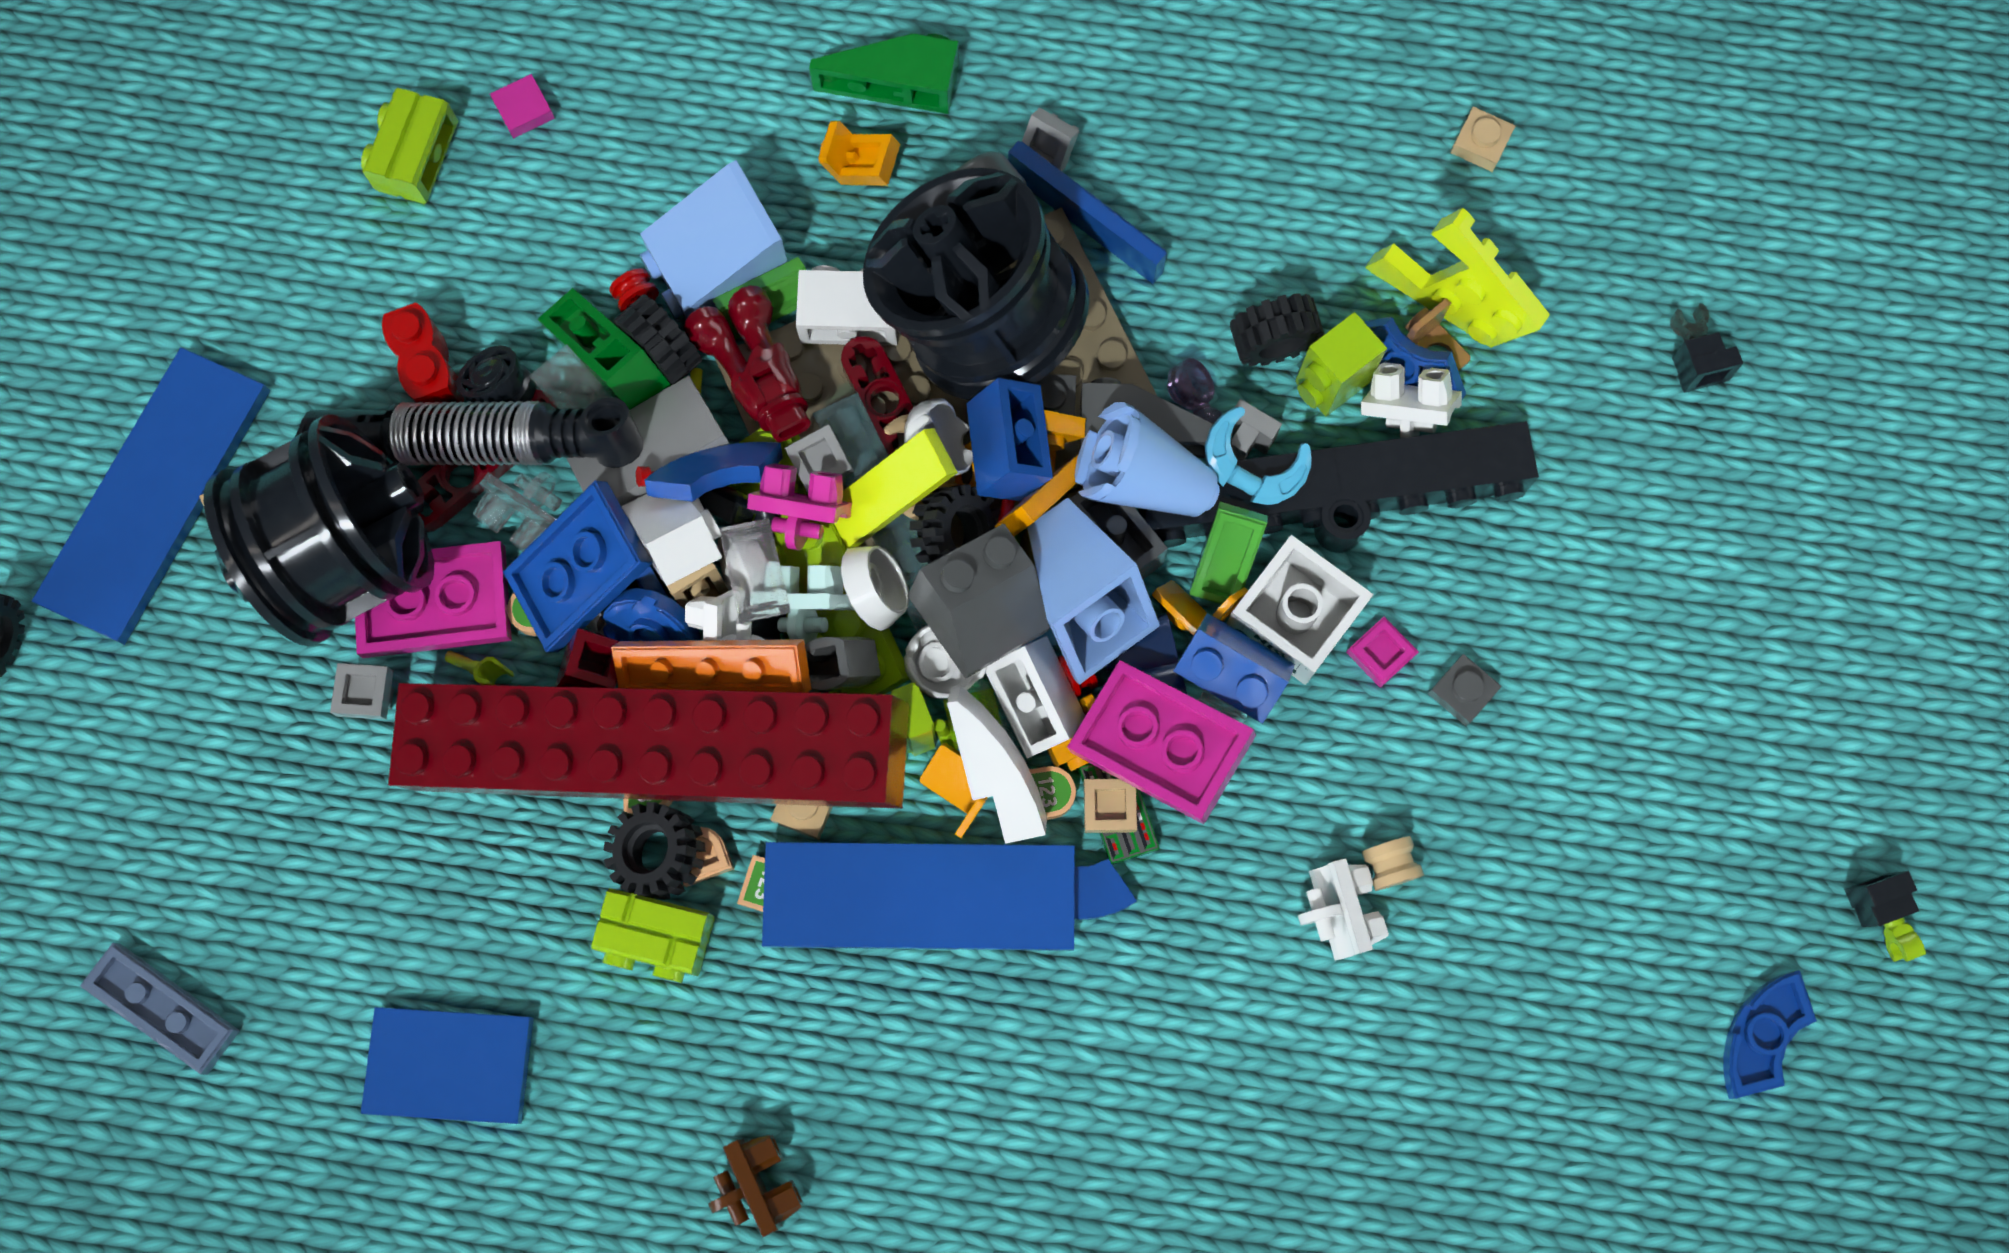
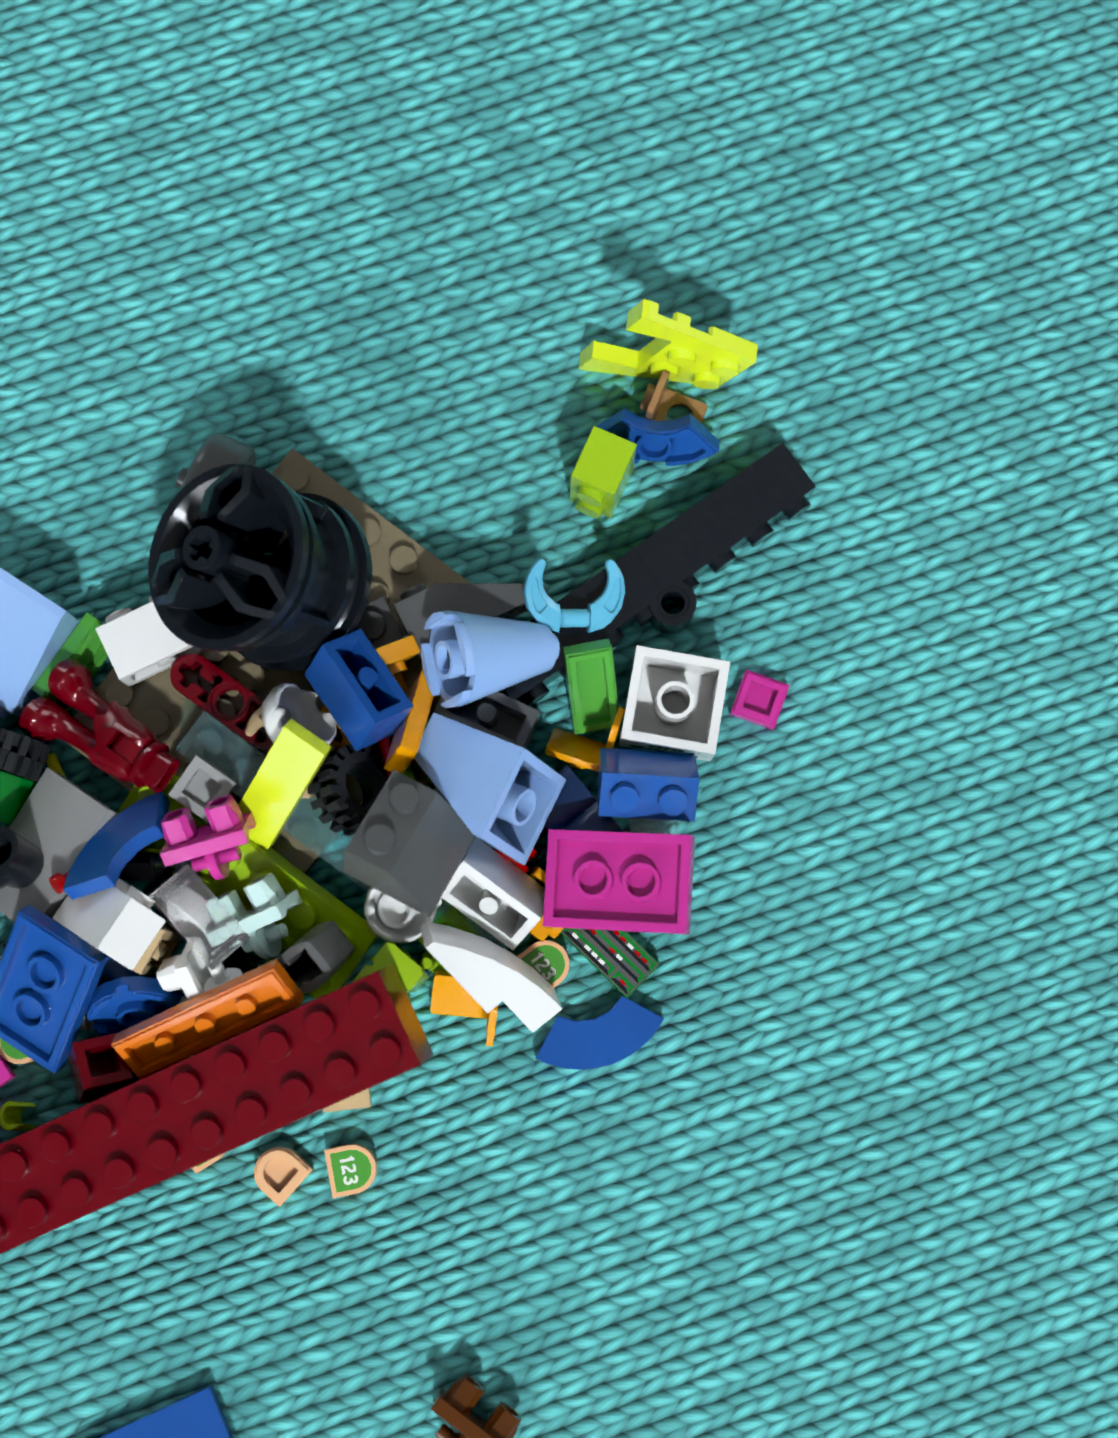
camera: 30 degrees left, 5 degrees up
(629, 846) = (215, 1199): black tyre -> none
(652, 933) = (275, 1263): lime brick -> none
(858, 157) = (89, 492): light orange bracket -> none
(874, 585) = (308, 873): white hat -> none
(897, 71) = (84, 396): green slope -> none
(919, 896) = (481, 1113): blue tile -> none
(1050, 137) = (250, 394): light grey tile -> none
(1089, 213) = (315, 441): blue tile -> none
(1109, 806) = (601, 954): tan plate -> none
(1193, 388) = (488, 554): plate -> none
(1253, 431) = (559, 564): light grey tile -> none
(1276, 329) = (533, 468): black tyre -> none
(1338, 910) = (832, 940): white hips -> none
(1393, 863) = (857, 876): tan wheel -> none
(1411, 407) = (677, 476): white hips -> none
(1464, 690) = (842, 697): dark grey plate -> none
(1483, 139) = (622, 203): tan plate -> none
(1702, 357) = (899, 308): black piece -> none

